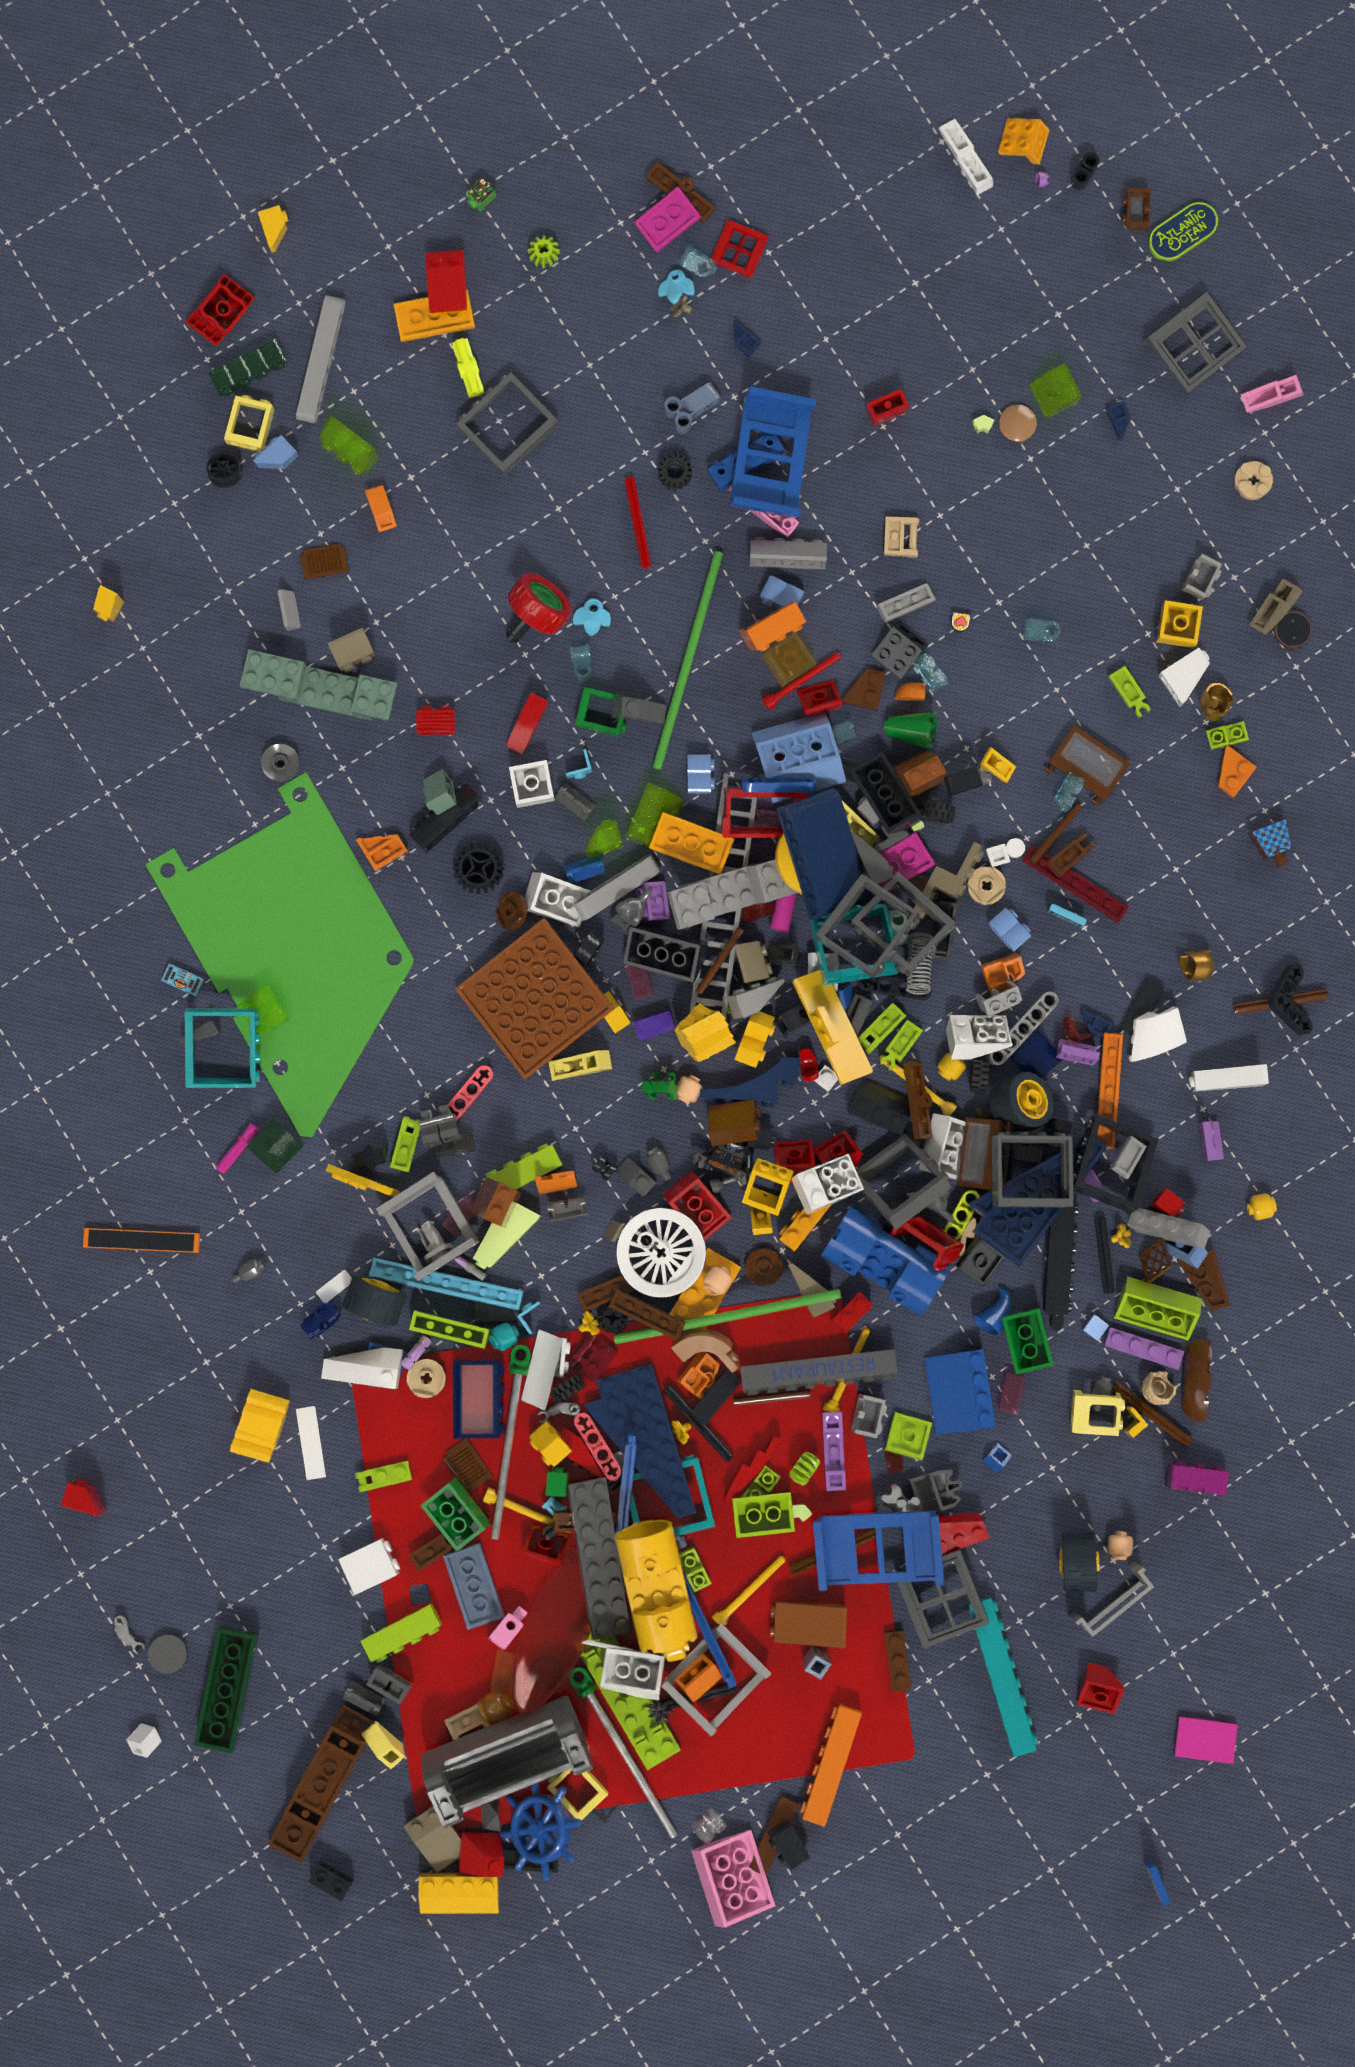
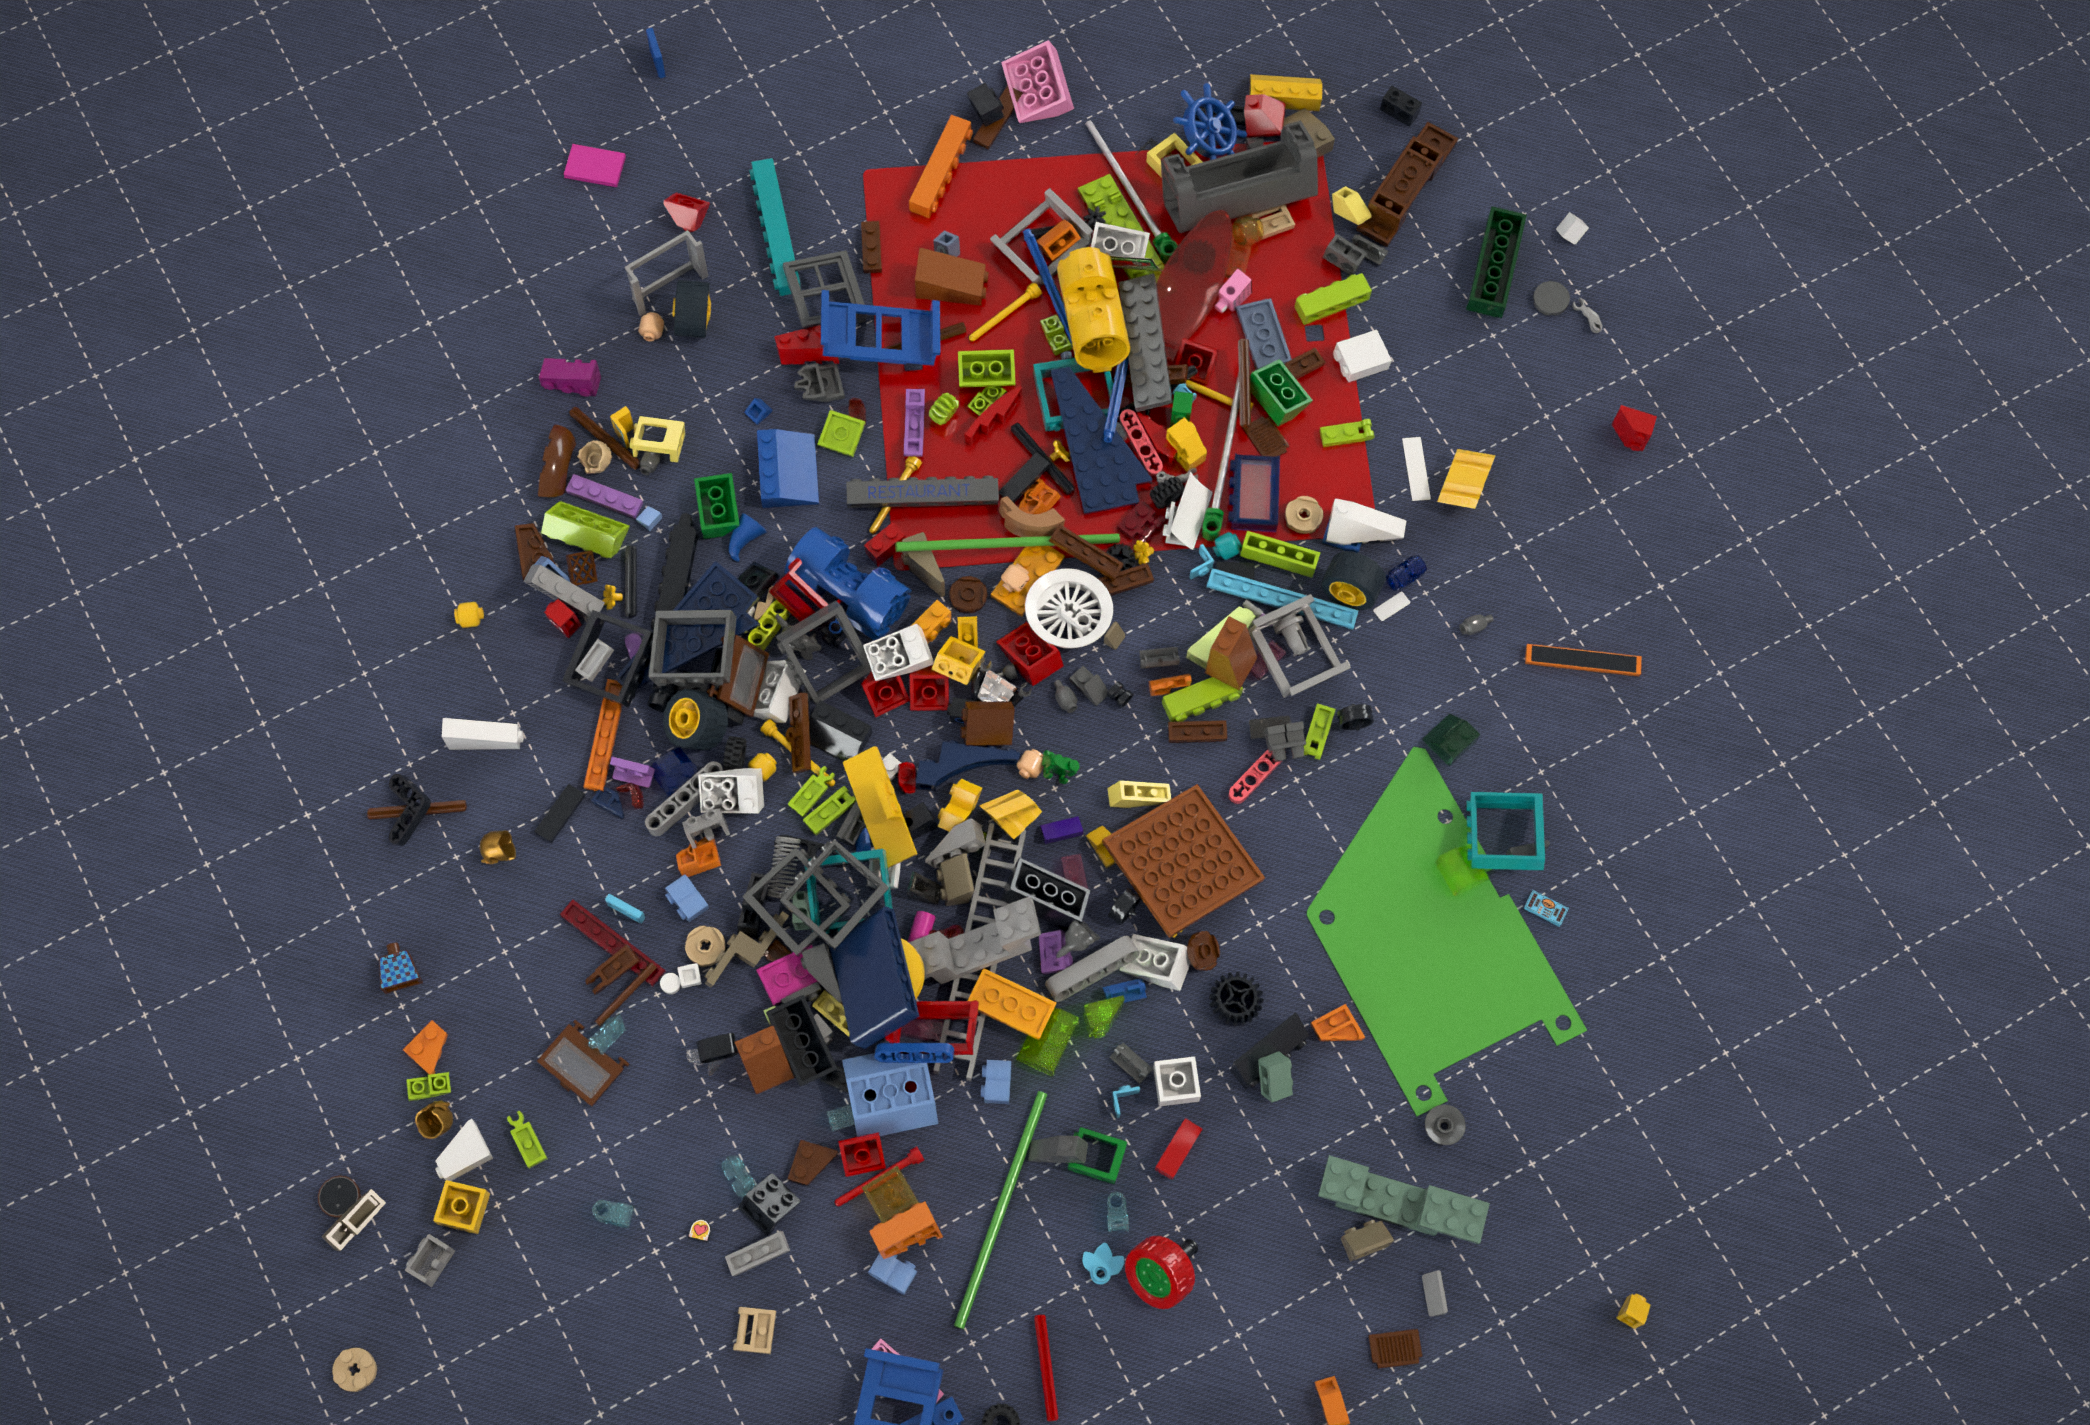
camera: 175 degrees right, 15 degrees down
(237, 1148) = (1485, 742): dark pink axle -> none
(359, 1181) = (1368, 693): yellow wing -> none
(416, 1352) = (1315, 535): lavender axle -> none
(436, 721) = (1277, 1158): red brick -> none
(492, 1519) = (1244, 383): none -> reddish brown axle
(526, 1135) = (1197, 731): none -> reddish brown plate
(708, 1826) = (1056, 124): clear wheel -> none
(719, 961) = (990, 882): reddish brown bar -> none
(772, 1397) = (1000, 475): reddish brown bar -> none
(788, 553) = (882, 1317): light grey slope -> none
(801, 1511) = (950, 375): yellowish green piece -> none
(868, 1416) = (878, 452): light grey window -> none
(898, 1502) = (855, 372): dark grey animal -> none
(911, 692) = (762, 1156): orange brick -> none
(913, 728) = (764, 1113): green cone -> none
(937, 812) = (747, 1020): black tyre -> none
(997, 765) = (678, 1068): yellow slope -> none
(1012, 1394) = (738, 462): clear pink plate -> none
(1156, 1034) = (549, 782): white slope -> none
(1211, 1141) = (509, 678): medium lavender bracket -> none

